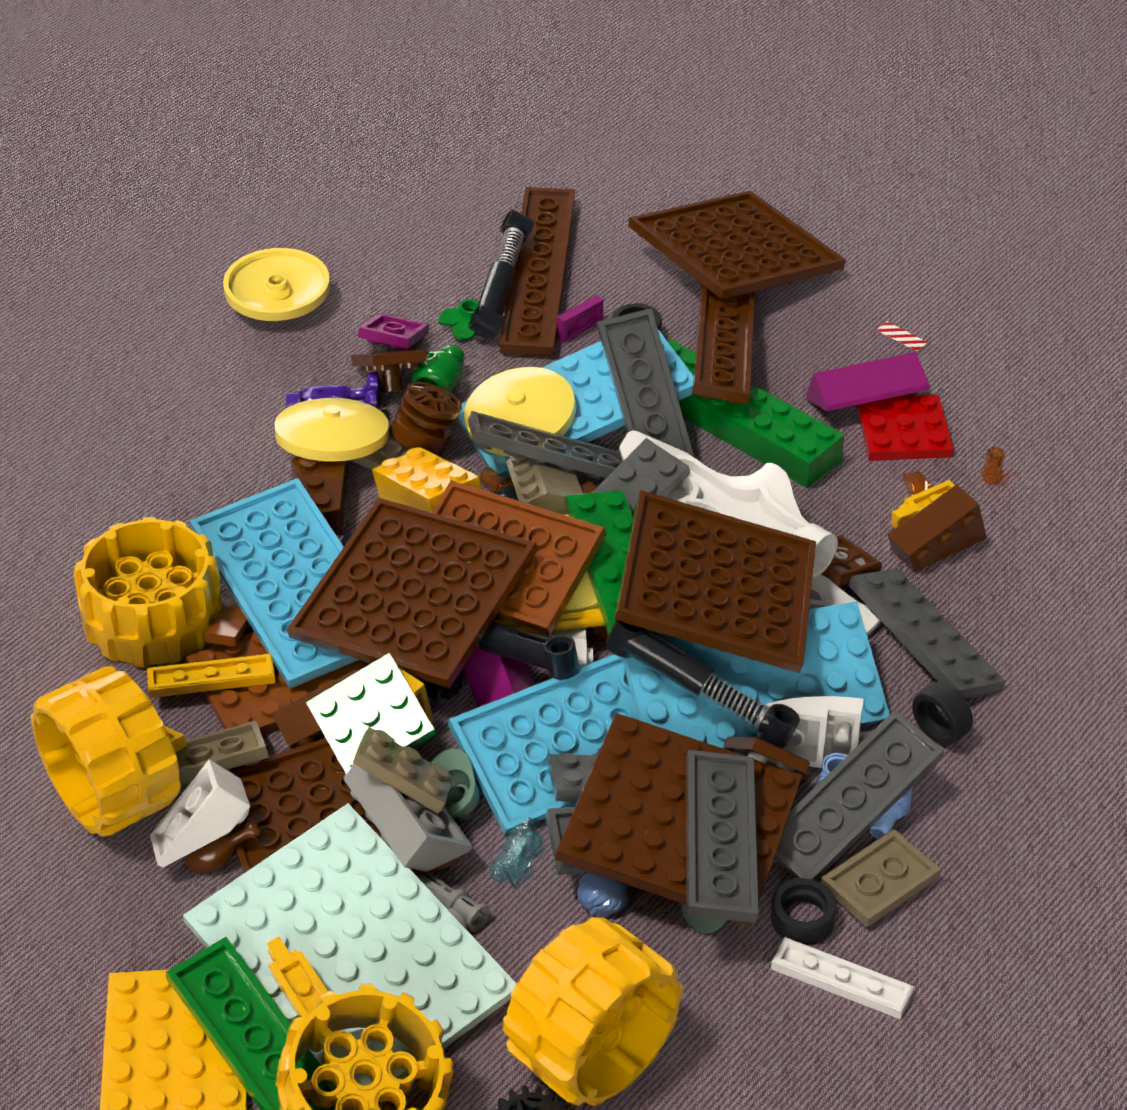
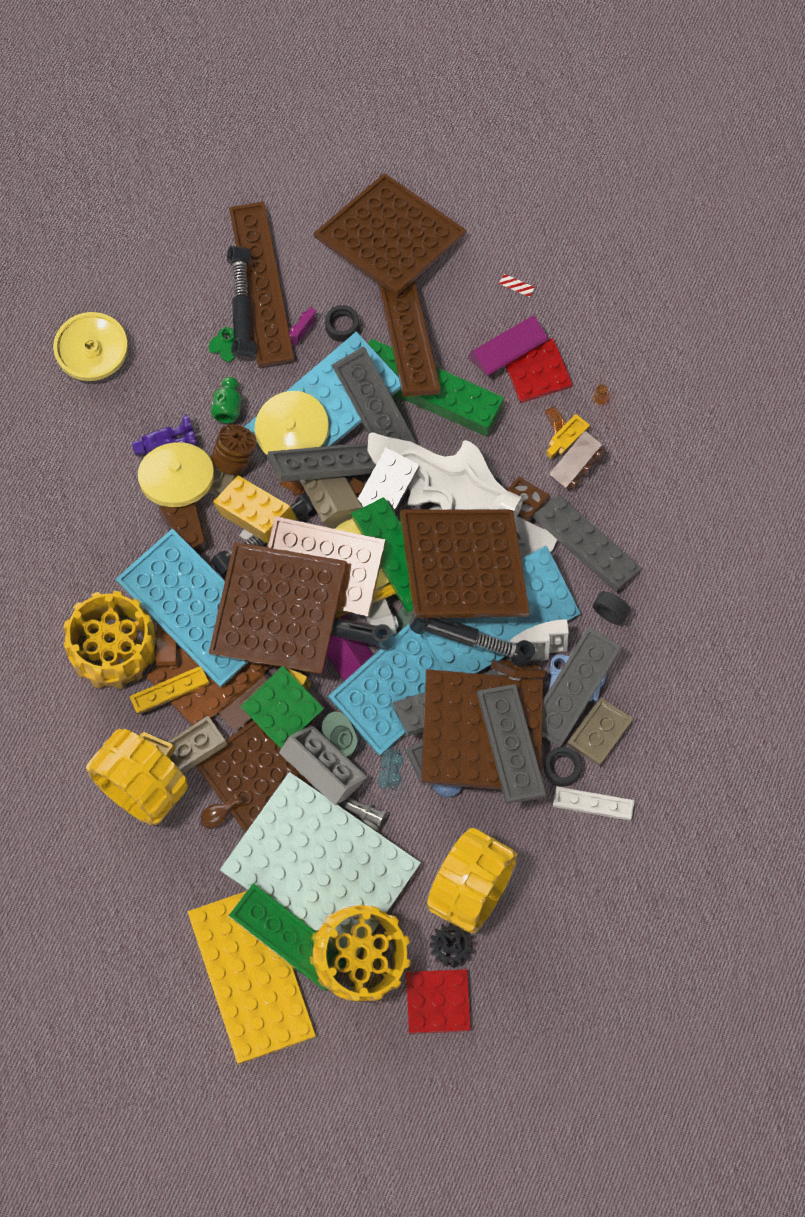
camera: 15 degrees left, 25 degrees up
(201, 814) = (204, 799): white slope -> none
(295, 977) = (302, 899): yellow hinge -> none
(389, 365) = (192, 402): reddish brown plate -> none
(393, 330) = (183, 369): magenta plate -> none
(403, 769) = (314, 742): dark tan plate -> none

